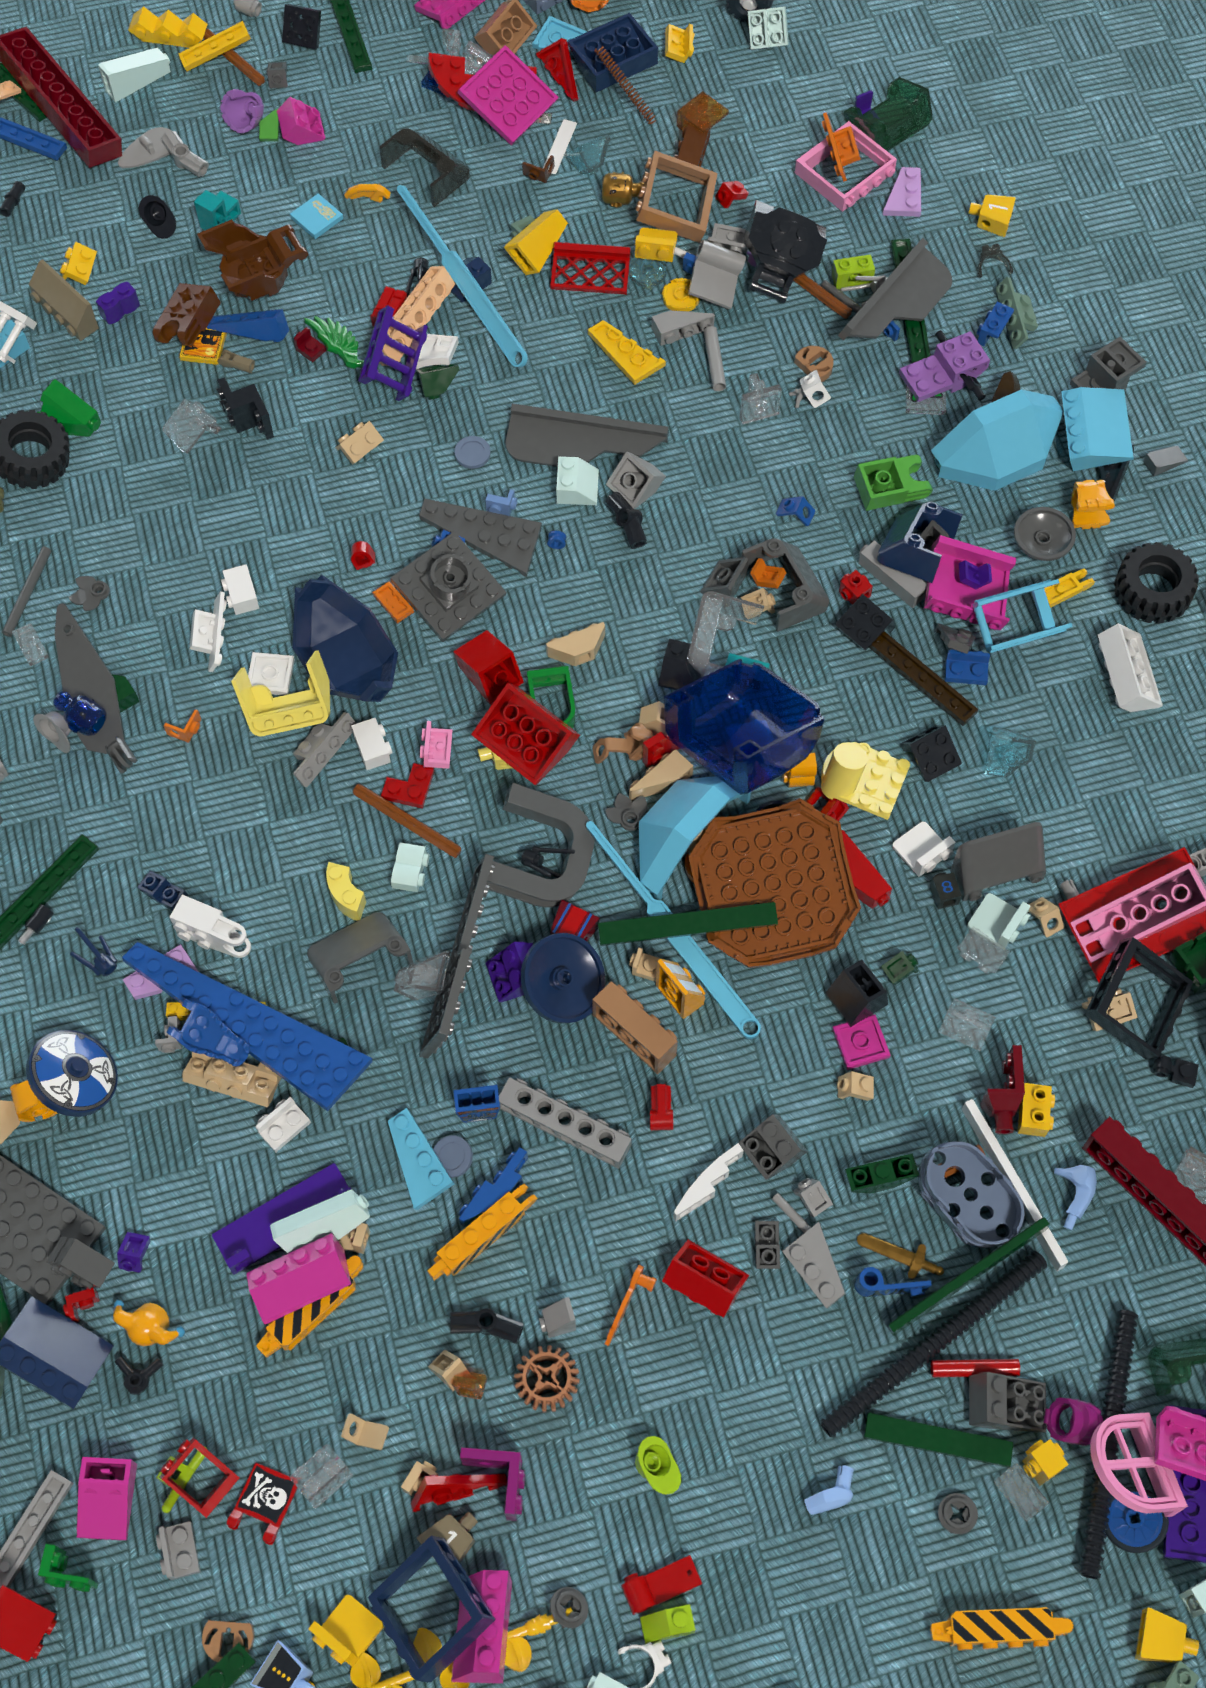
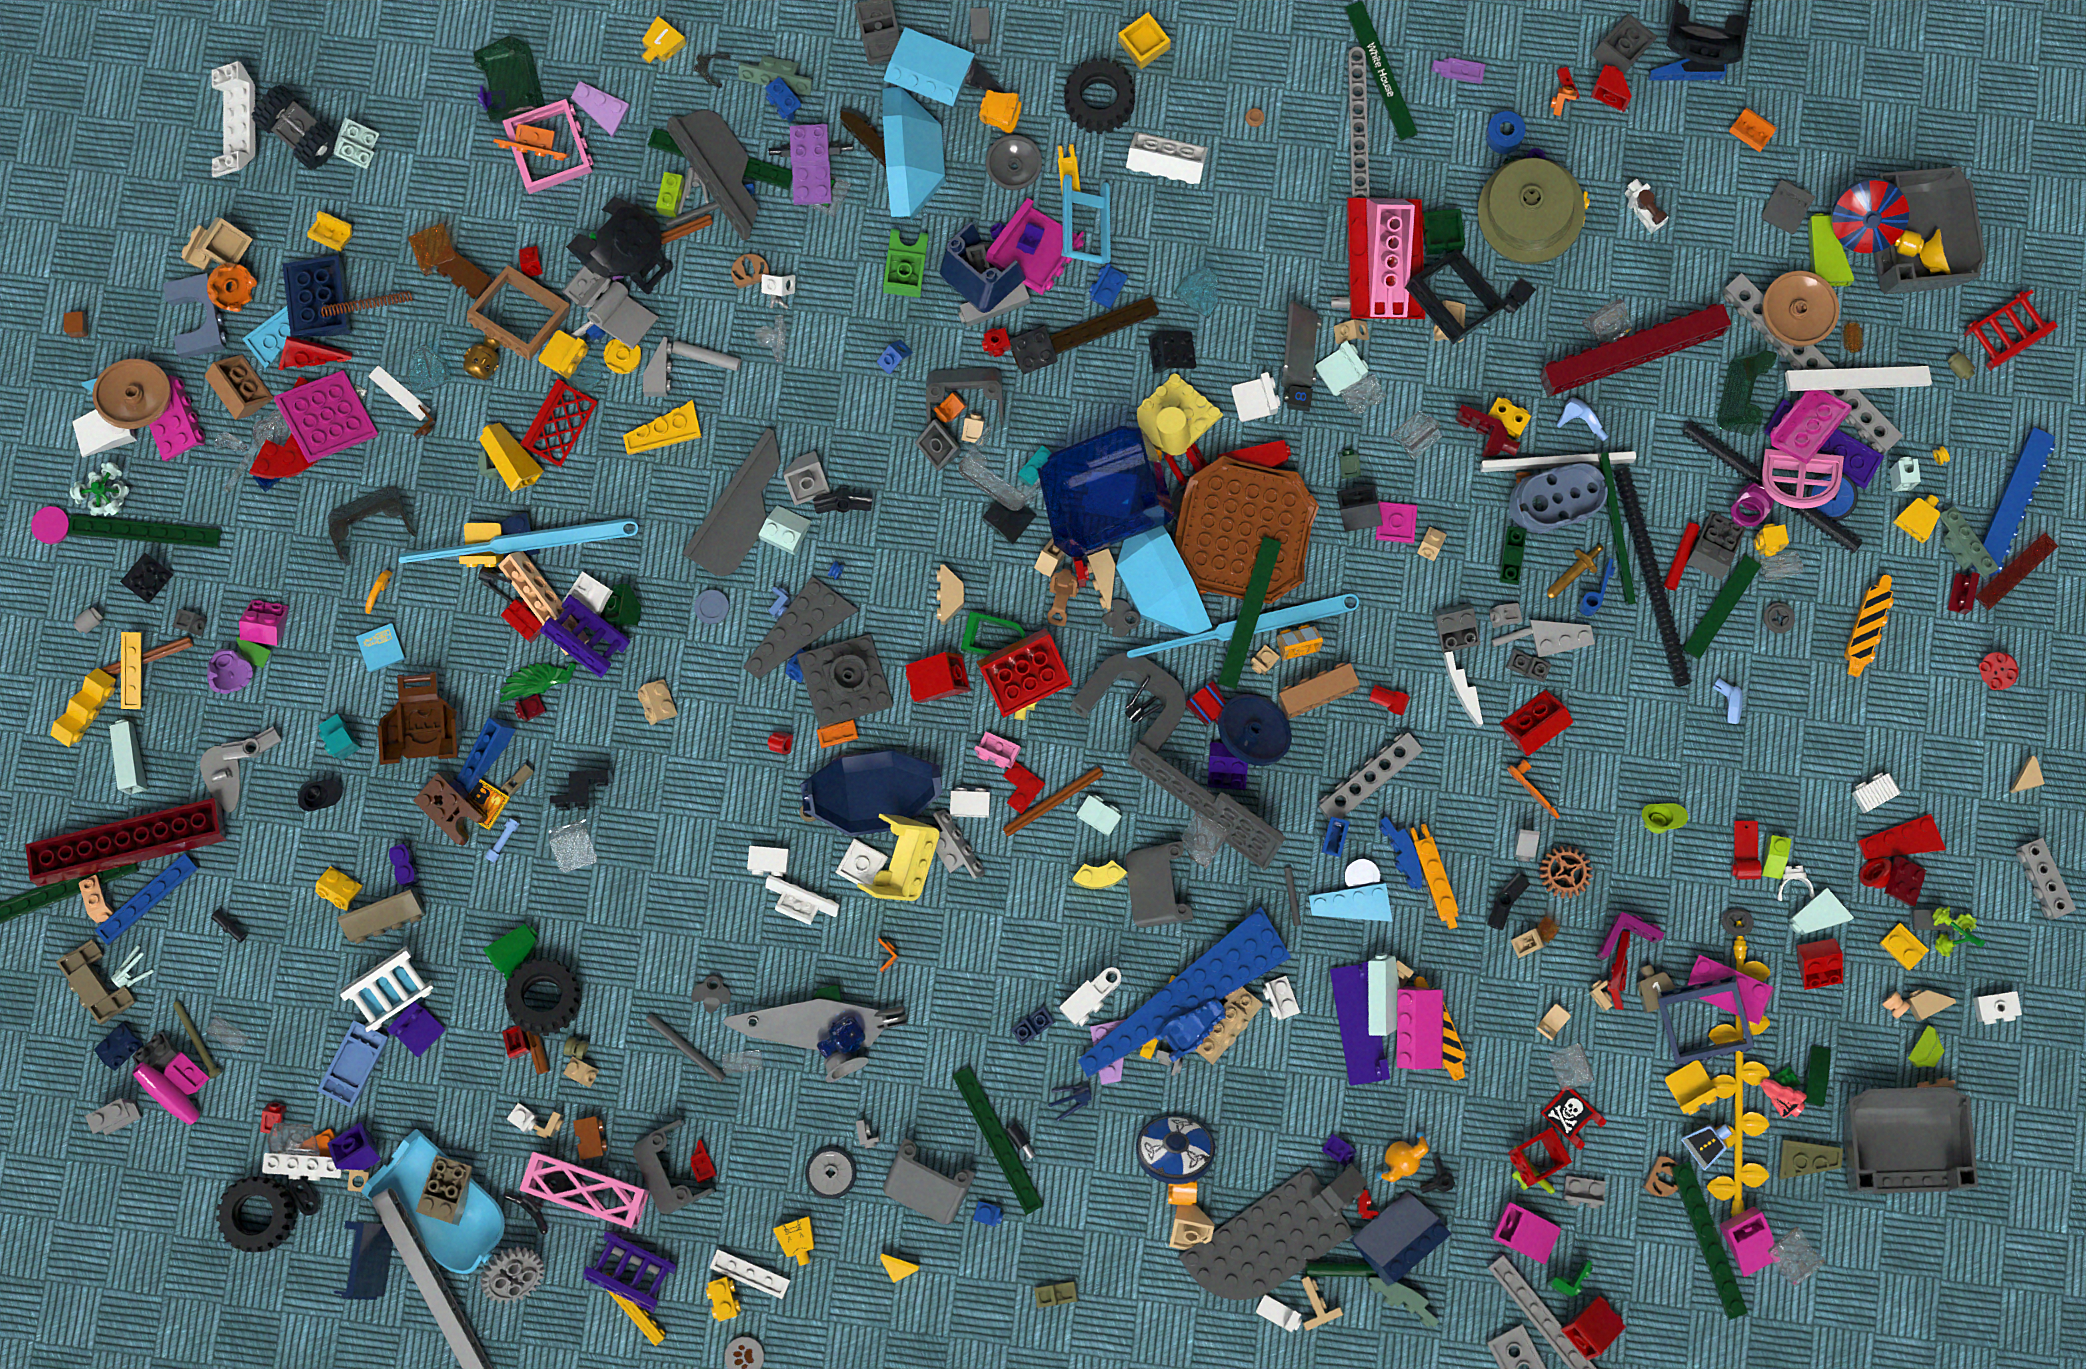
camera: 60 degrees left, 15 degrees up
(189, 372) = (493, 854): none -> light blue bar
(400, 1094) = (1292, 896): none -> dark grey bar
(454, 242) = (481, 533): none -> yellow bracket
(956, 639) = (1080, 282): dark grey wing -> none

